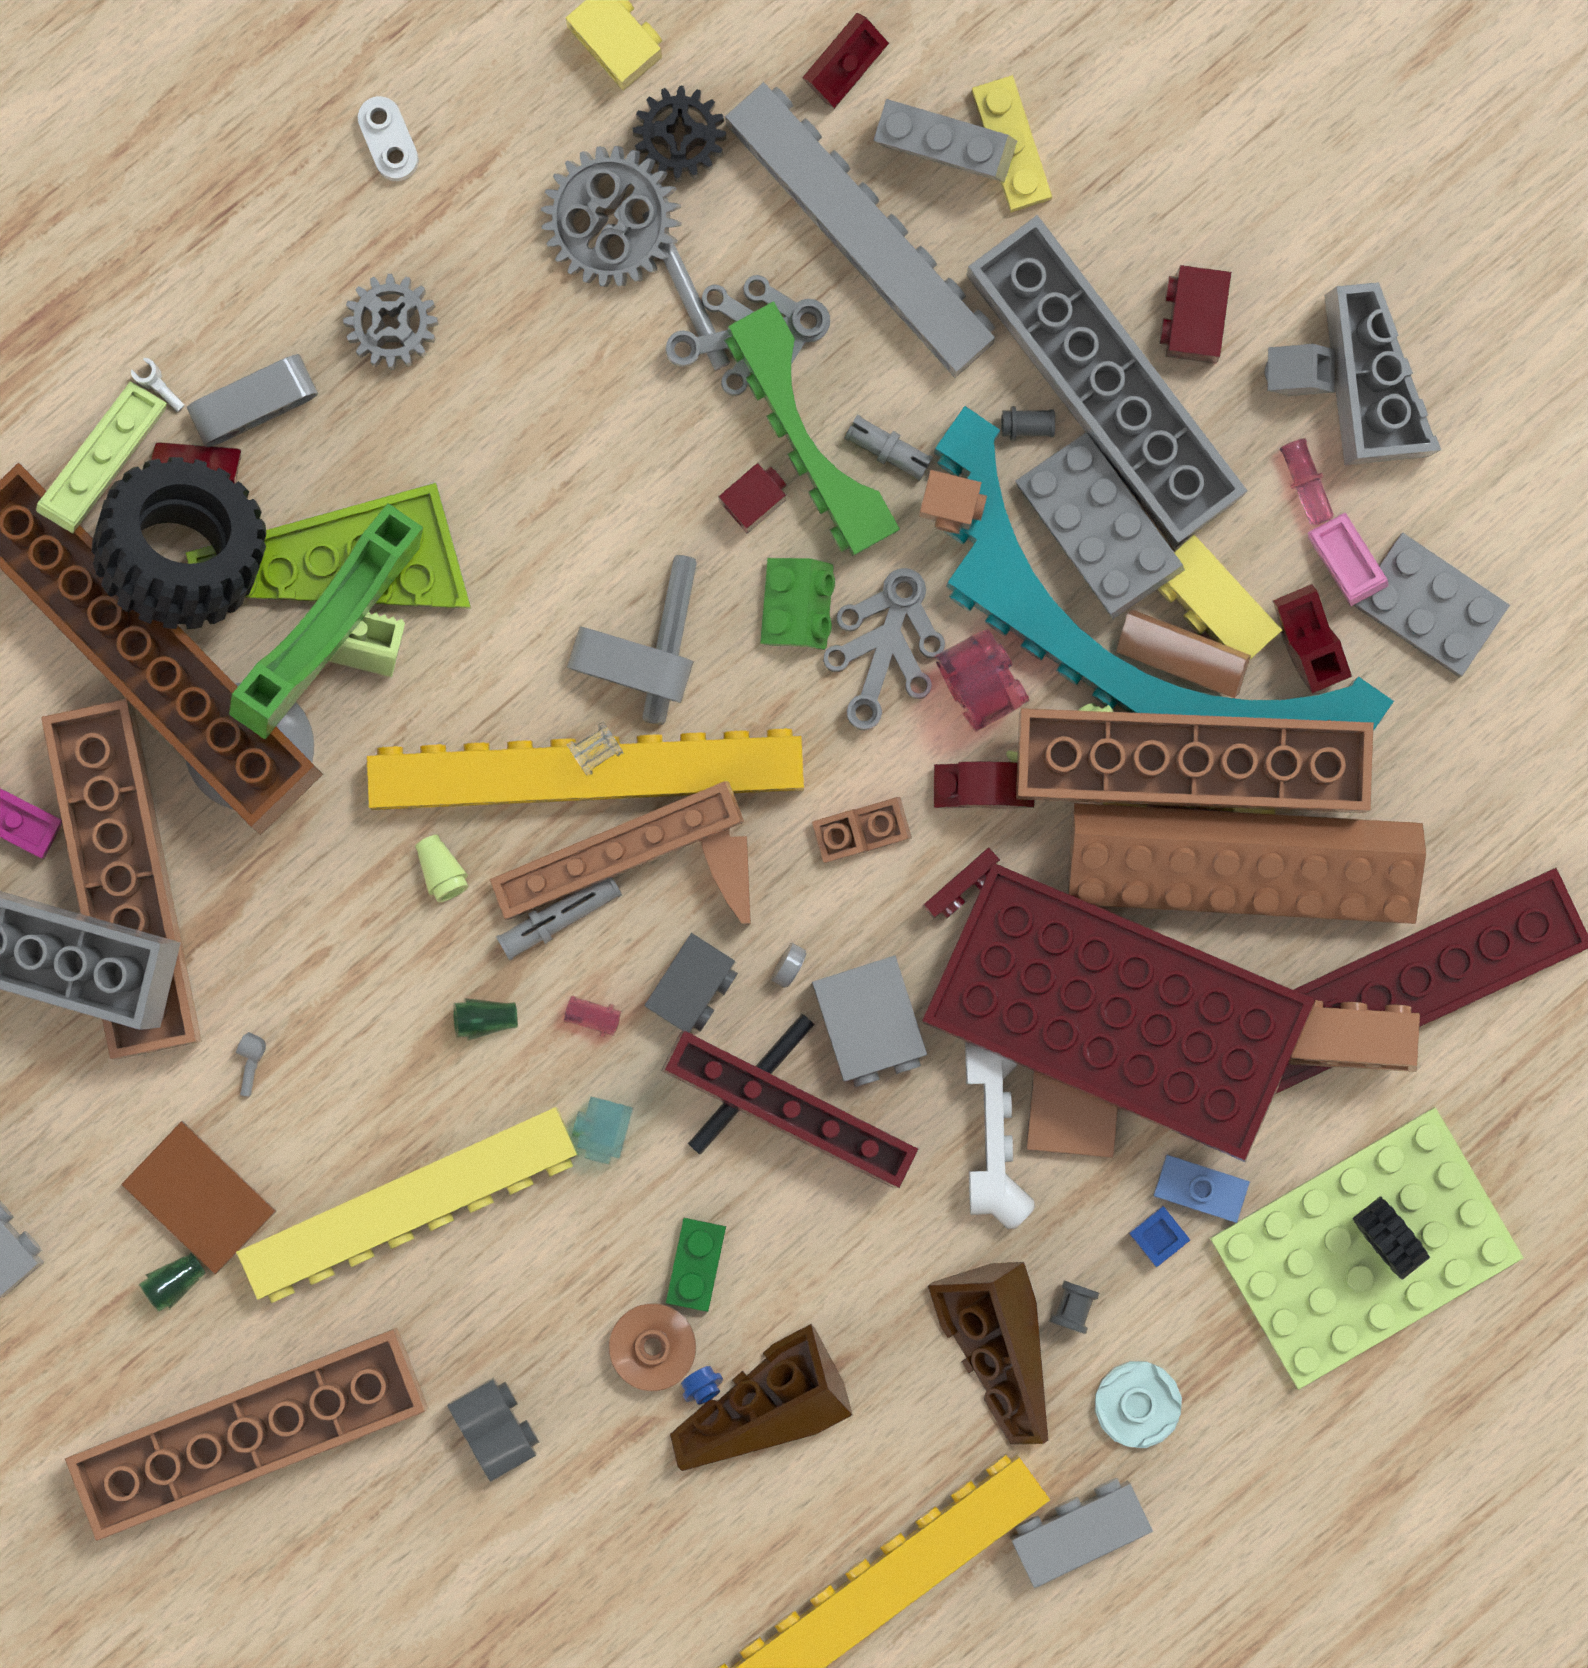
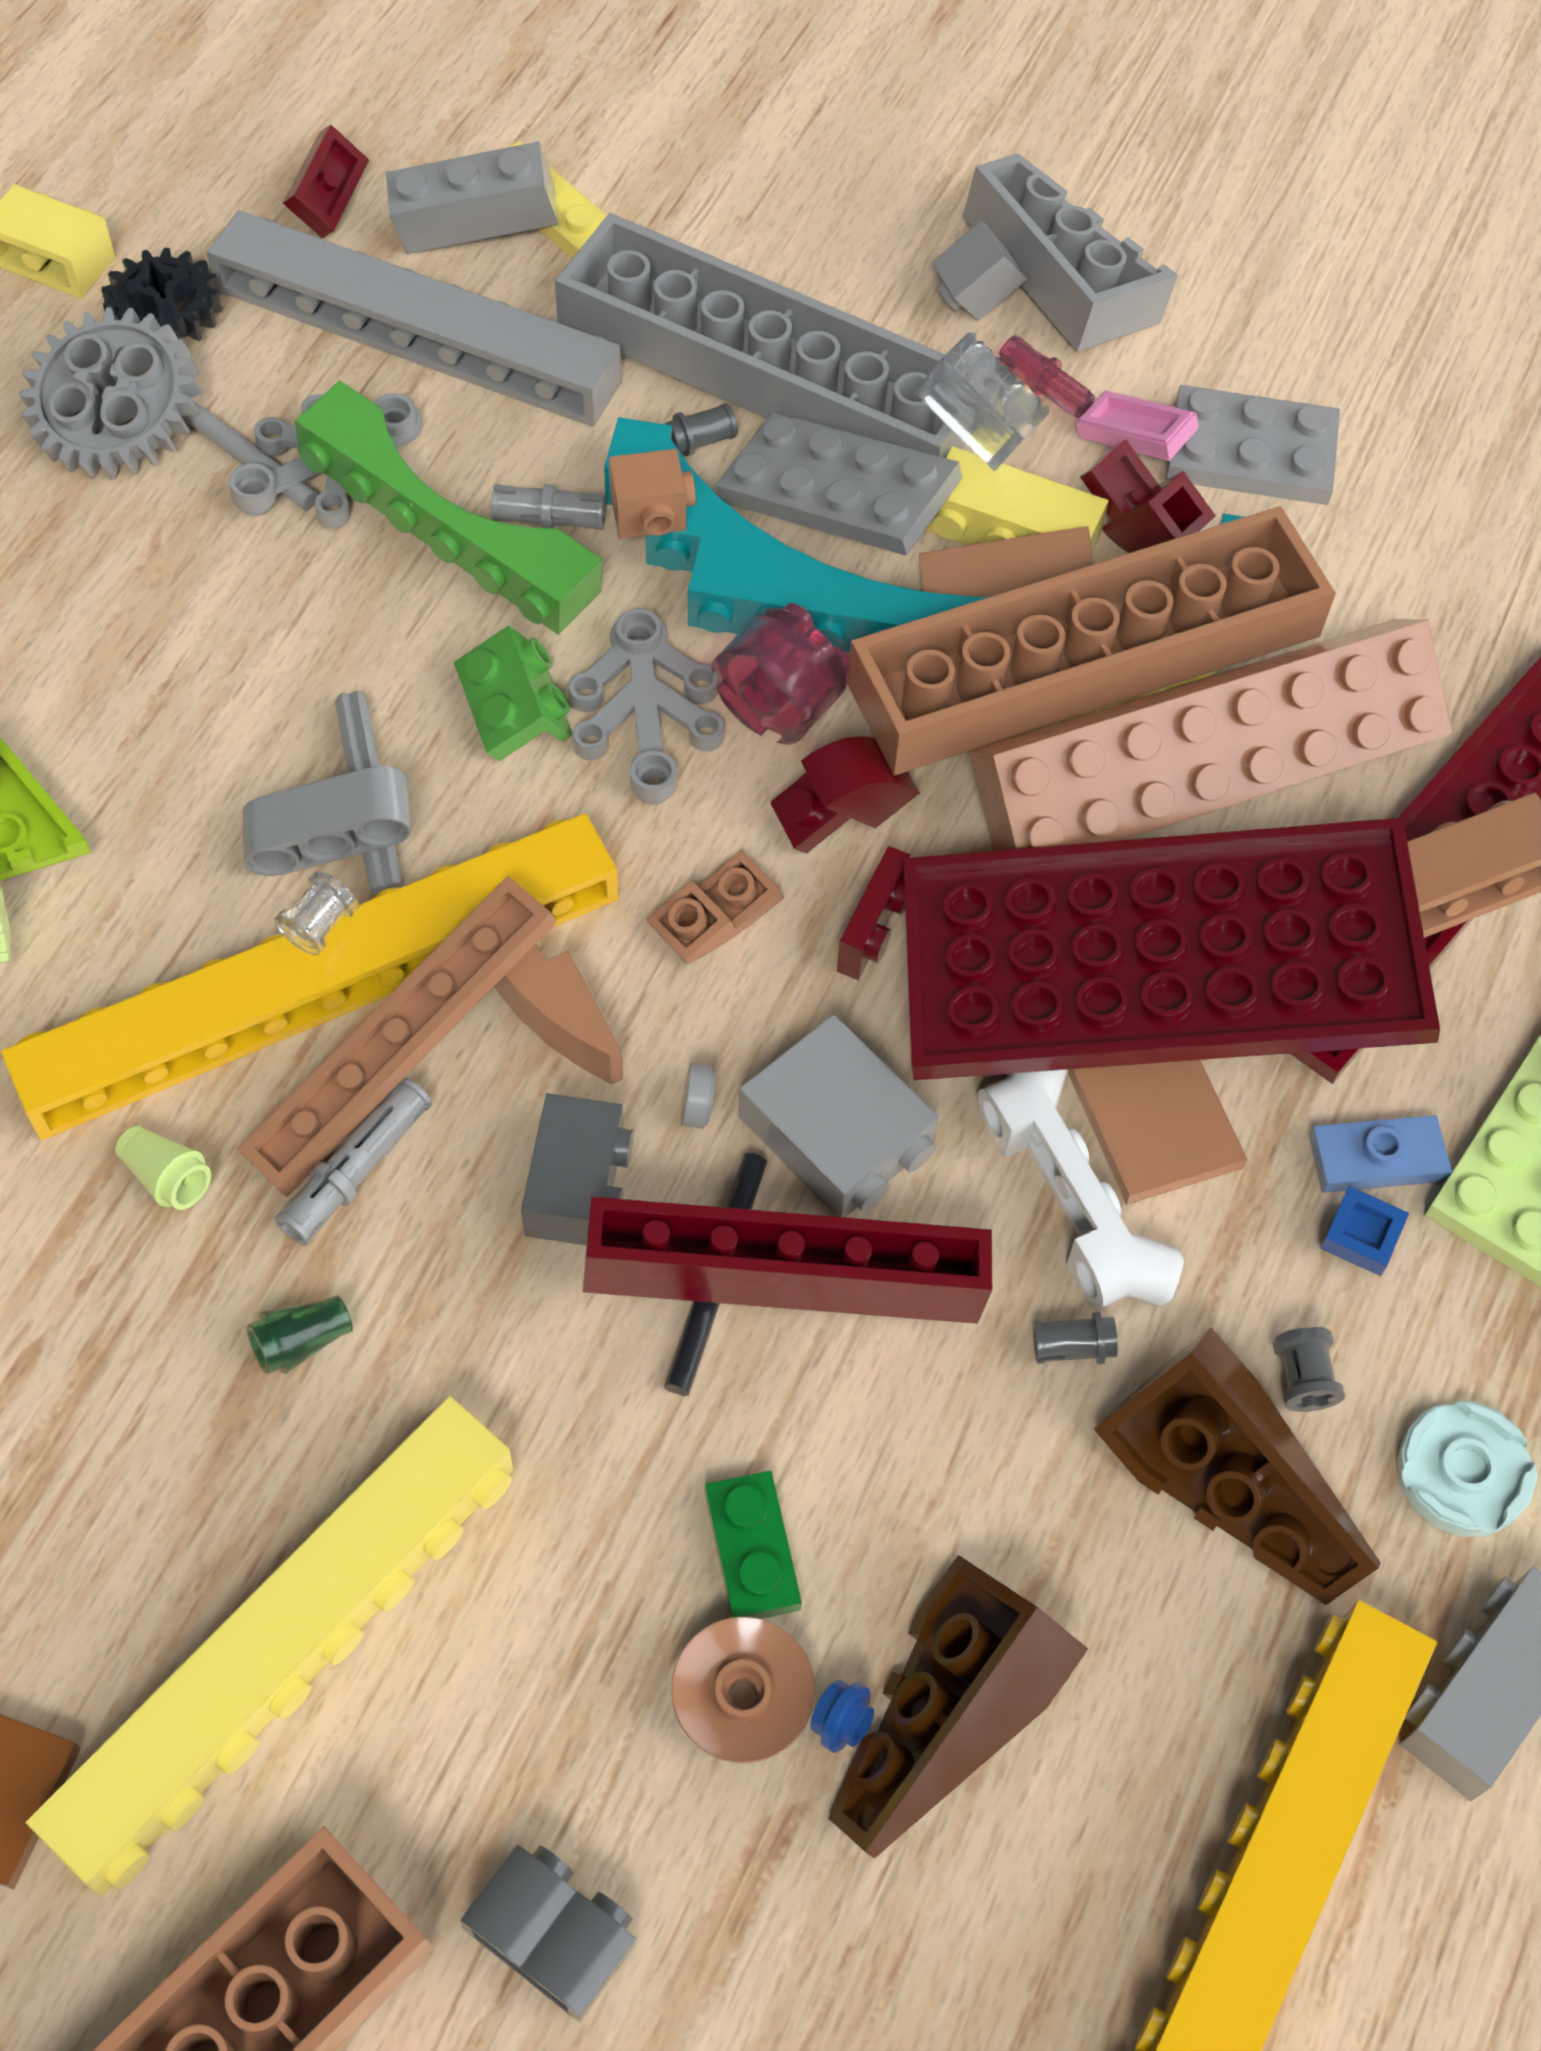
camera: 25 degrees left, 25 degrees down
(592, 1016) = (455, 1268): clear pink pin -> none
(602, 1129) = (533, 1407): clear light blue brick -> none
(754, 496) = (405, 604): dark red brick -> none
(945, 1226) = (1076, 1339): none -> dark grey pin
(1196, 314) = (836, 263): dark red brick -> none
(1218, 529) = (982, 401): none -> clear brick

